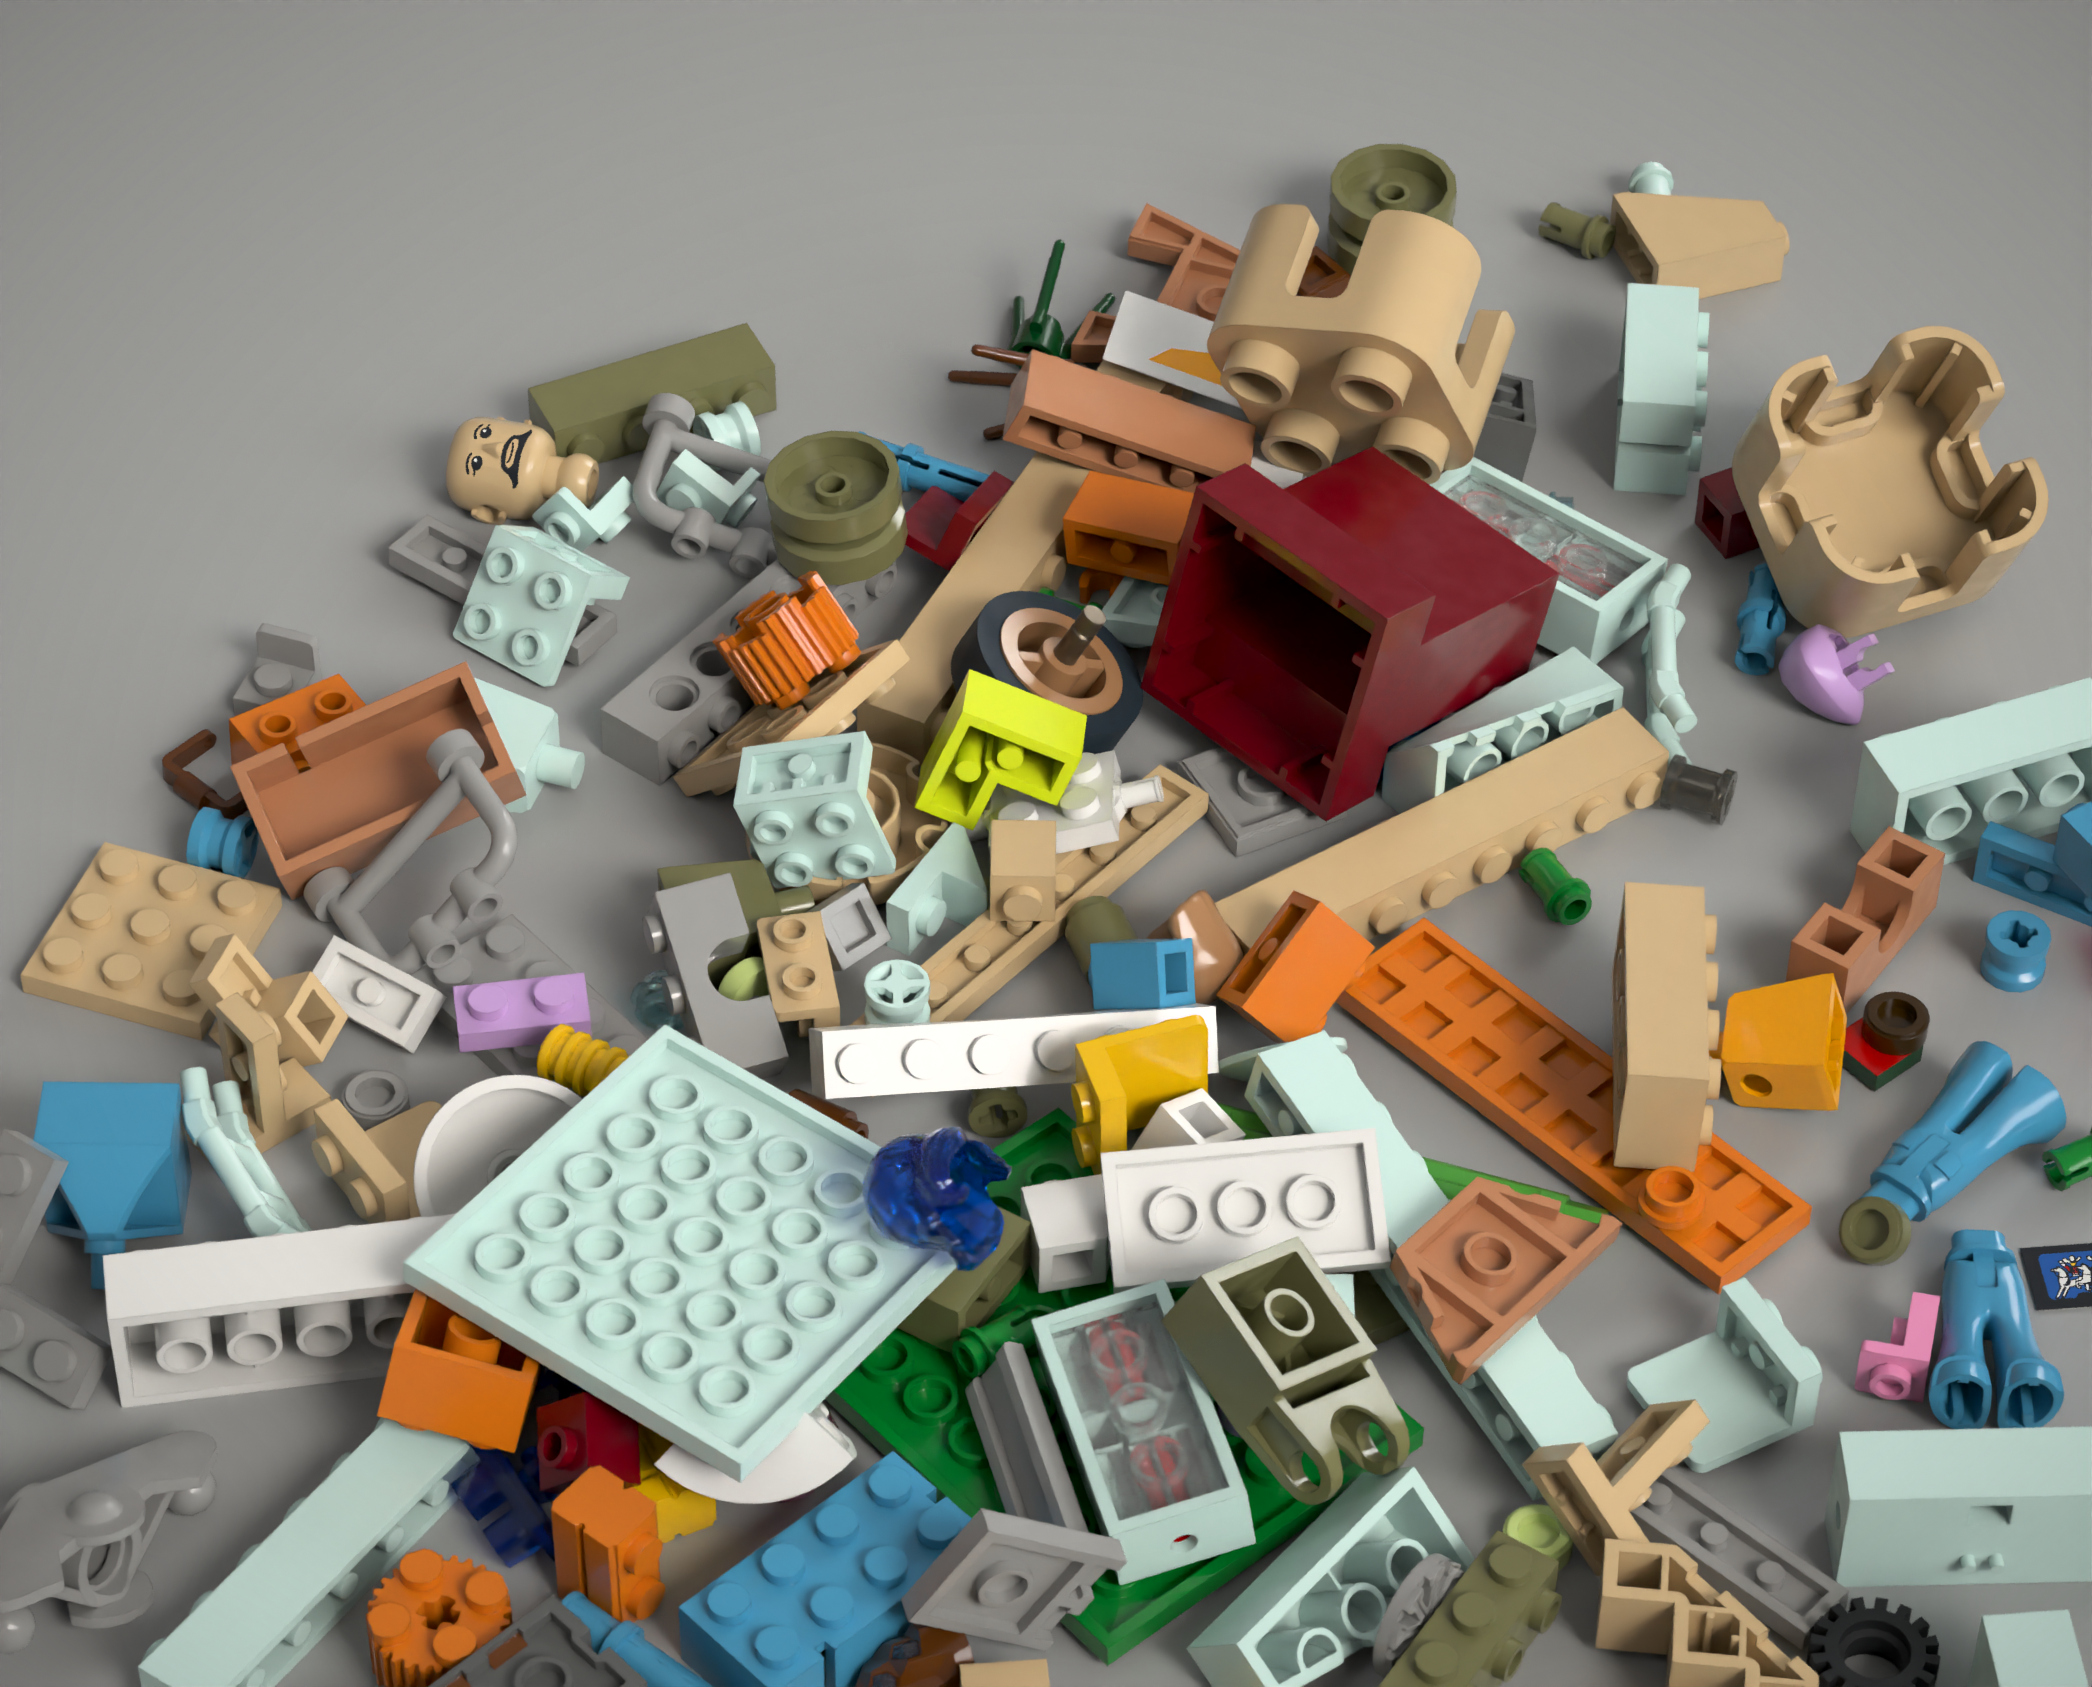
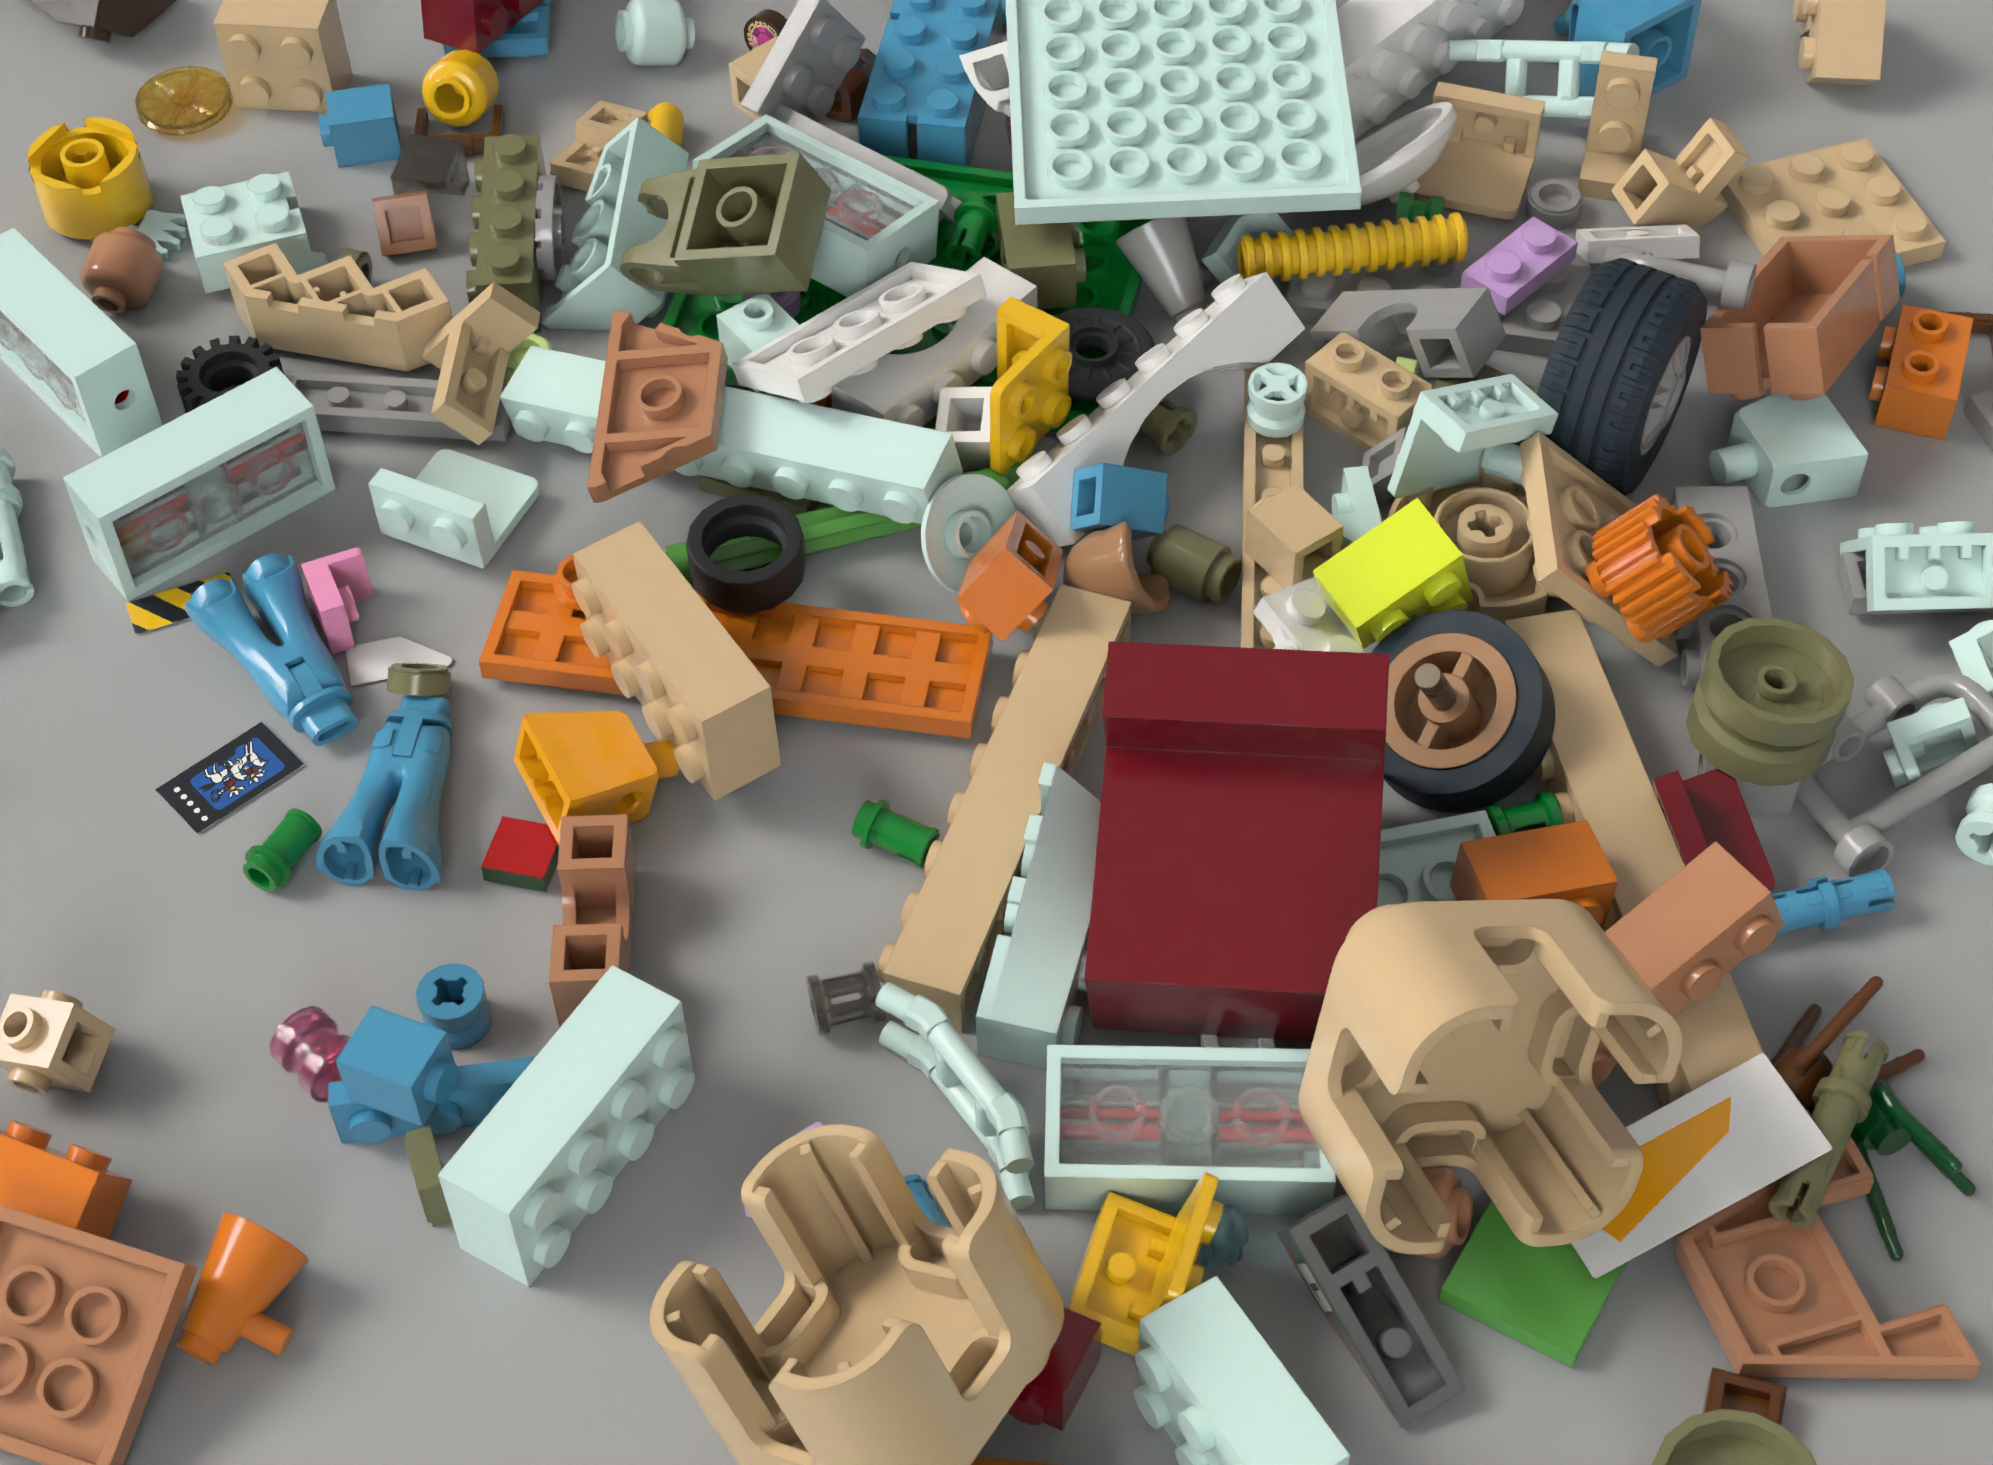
camera: 145 degrees right, 5 degrees up
(614, 790) = (1623, 368): none -> black wheel
(935, 1194) = (1038, 137): clear blue hair -> none
(1028, 1127) = (1108, 330): none -> black wheel
(1077, 327) = (1839, 1105): none -> olive pin
(1515, 1092) = (738, 518): none -> black tyre
(1627, 482) = (1142, 1261): none -> yellow bracket
(1869, 1299) = (371, 660): none -> white sticker
(1895, 1023) = (512, 858): dark brown tile -> none

